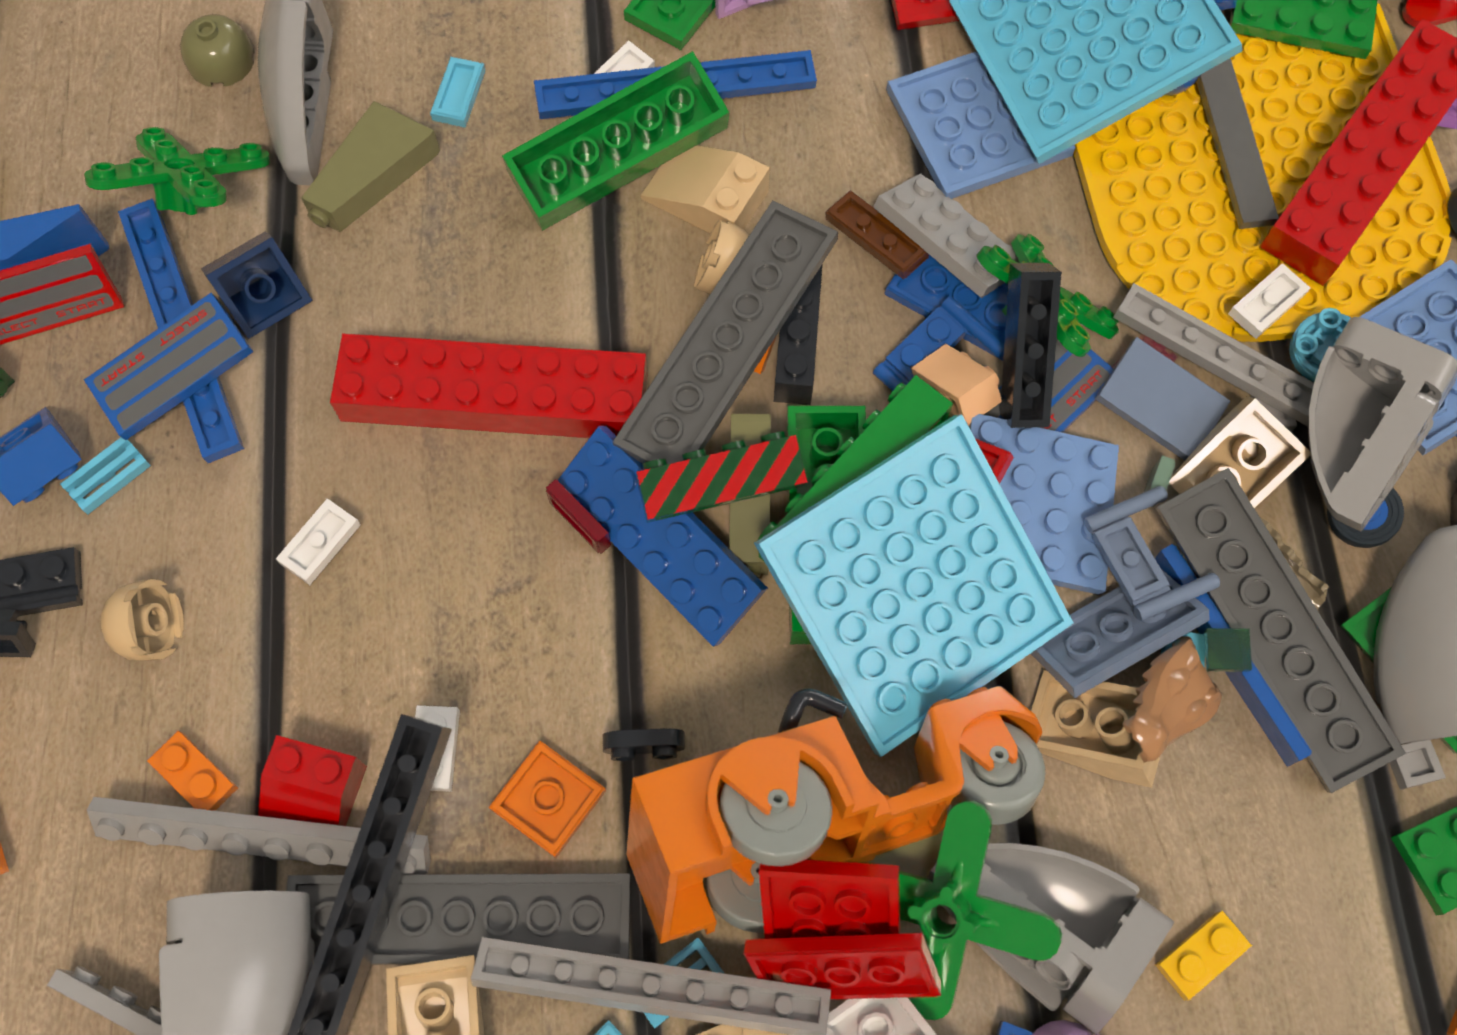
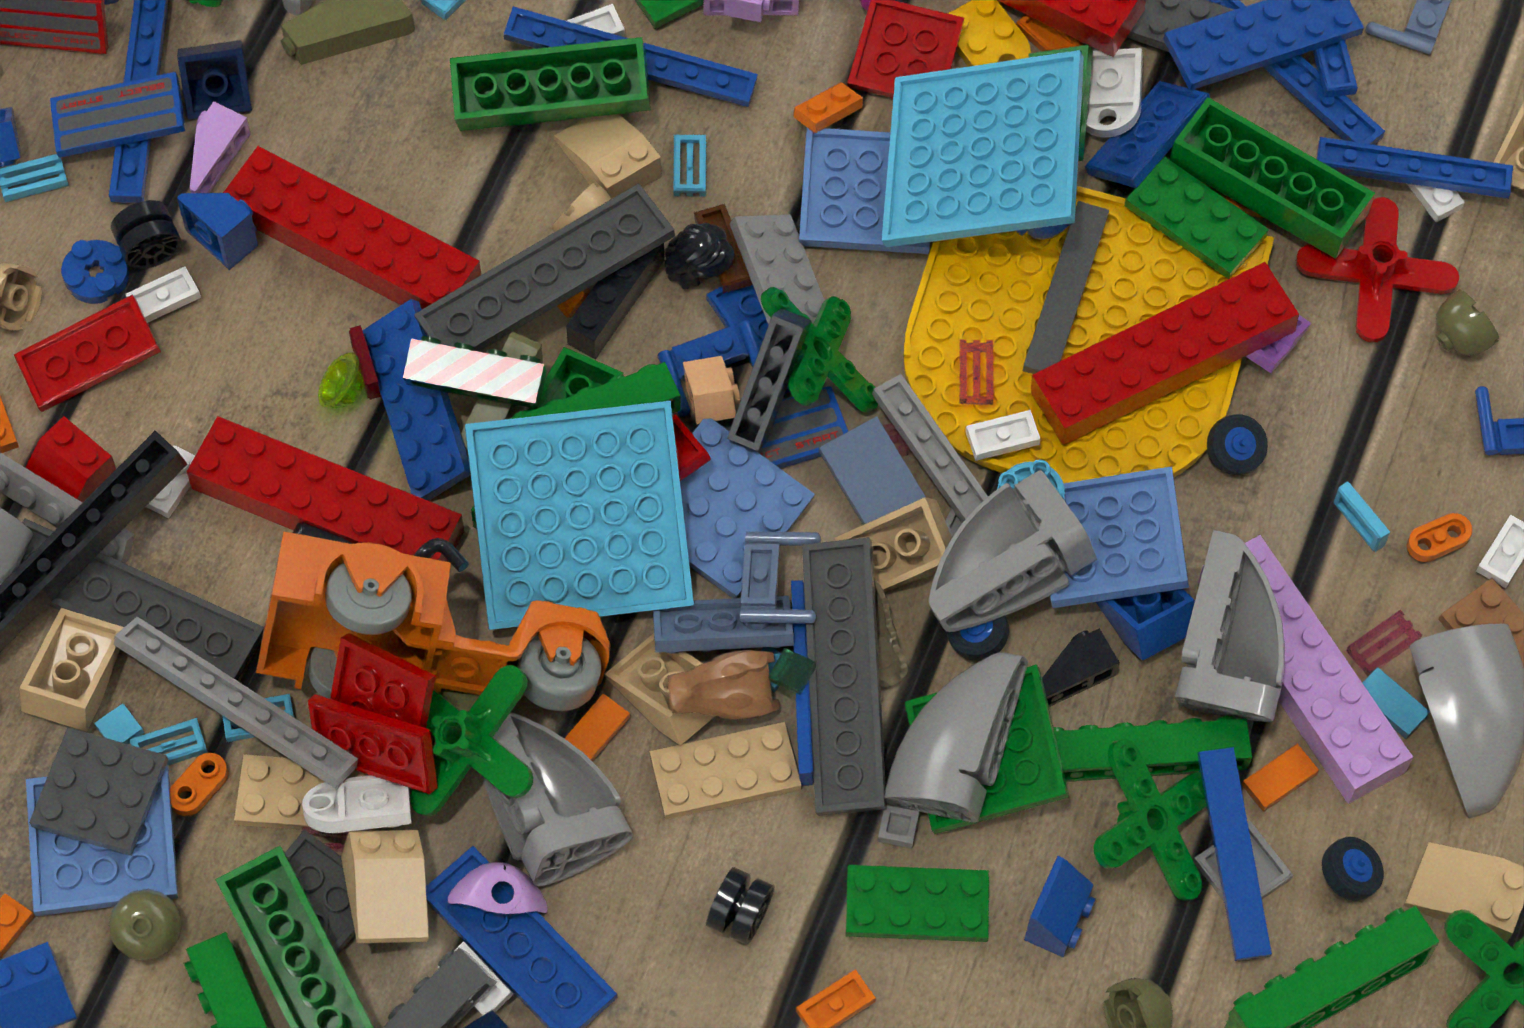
camera: 25 degrees right, 5 degrees down
(211, 532) = (88, 255): none -> blue plate
(264, 646) = (87, 353): none -> red tile
(266, 483) = (146, 234): none -> black wheel
(293, 347) = (217, 141): none -> lavender slope
(343, 436) = (219, 225): none -> blue slope
(547, 799) = (234, 553): orange tile -> none
(565, 550) = (341, 382): none -> clear neon green piece
(615, 689) = (303, 488): none -> red brick
(803, 190) = (689, 188): none -> medium azure tile
(863, 248) = (697, 253): none -> black hair
(895, 54) = (828, 107): none -> orange plate
(1049, 817) = (598, 727): none -> orange tile
(1160, 474) = (832, 528): sand green tile -> none
(1203, 955) = (649, 877): yellow plate -> none
(1205, 246) = (975, 347): none -> tile
(1206, 791) = (725, 770): none -> tan plate
(1332, 946) = (740, 905): none -> black wheel

